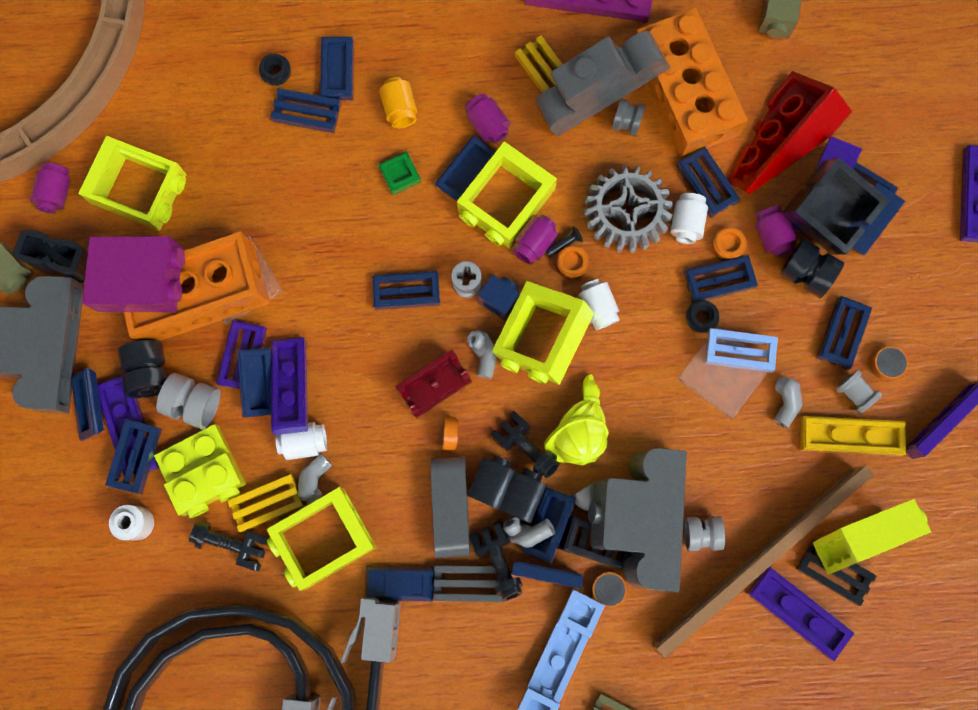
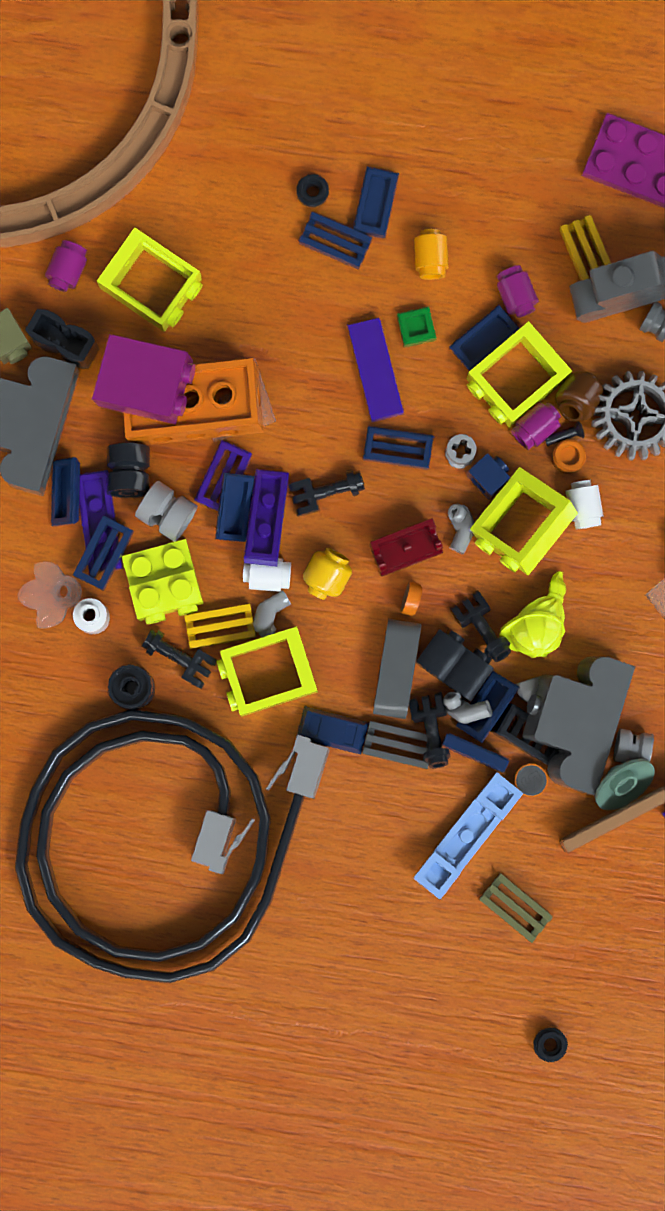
camera: 10 degrees right, 5 degrees up
(85, 509) = (45, 594): none -> clear plate
(184, 586) = (131, 687): none -> black wheel
(331, 354) = (311, 494): none -> black hinge
(361, 427) = (327, 573): none -> yellow head
(369, 221) = (375, 370): none -> dark purple tile
(569, 202) = (579, 396): none -> reddish brown head
(704, 572) = (624, 784): none -> sand green dish

